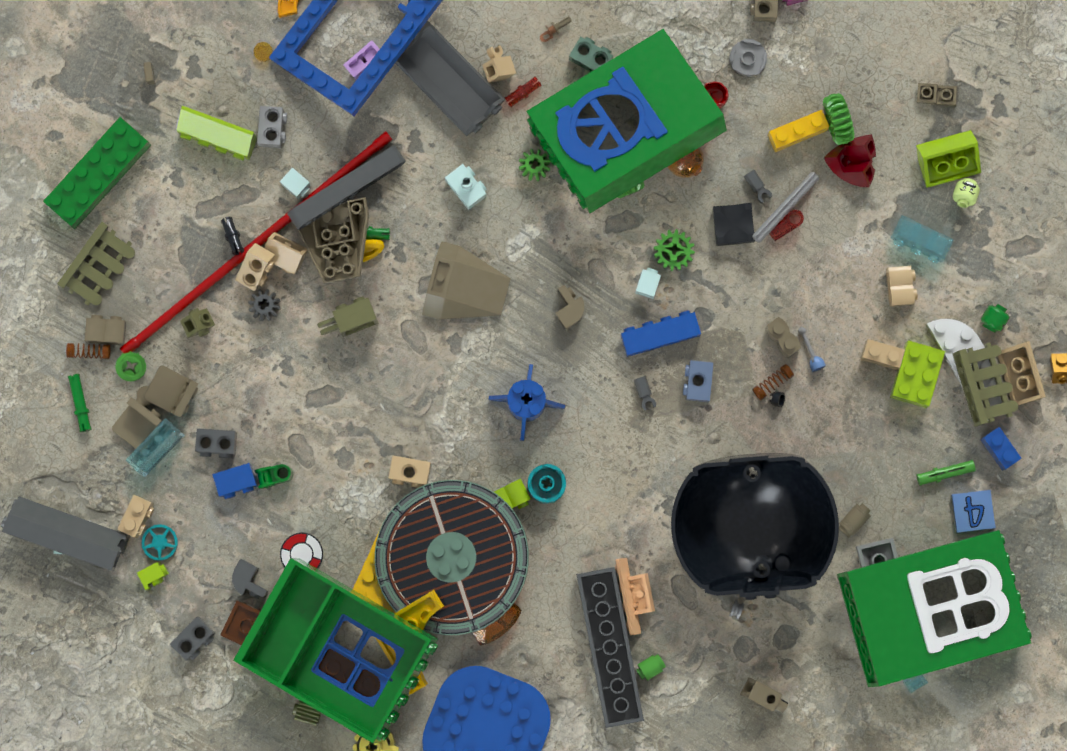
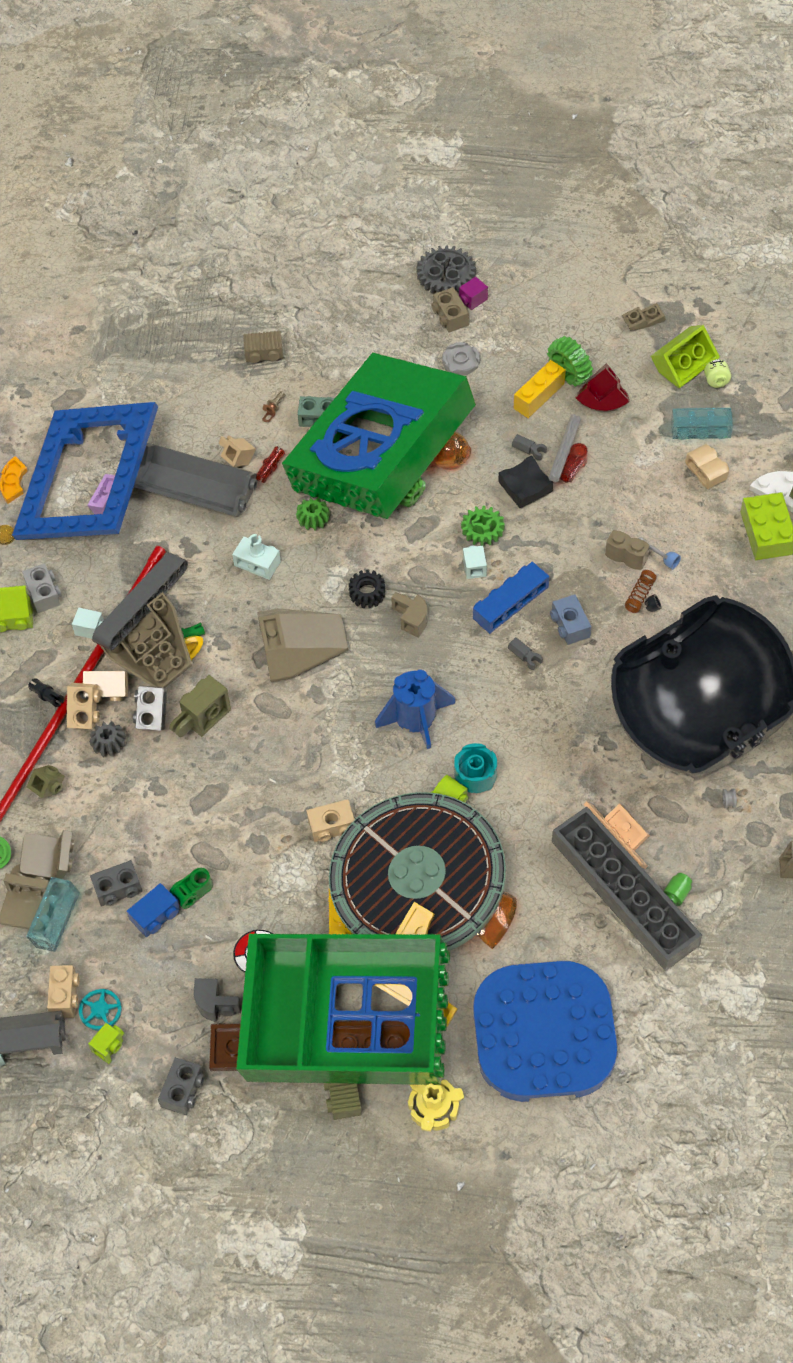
camera: 25 degrees left, 25 degrees down
(312, 298) = (157, 708): none -> brick
(541, 253) = (367, 598): none -> black tyre
(882, 354) = (726, 524): tan brick -> none

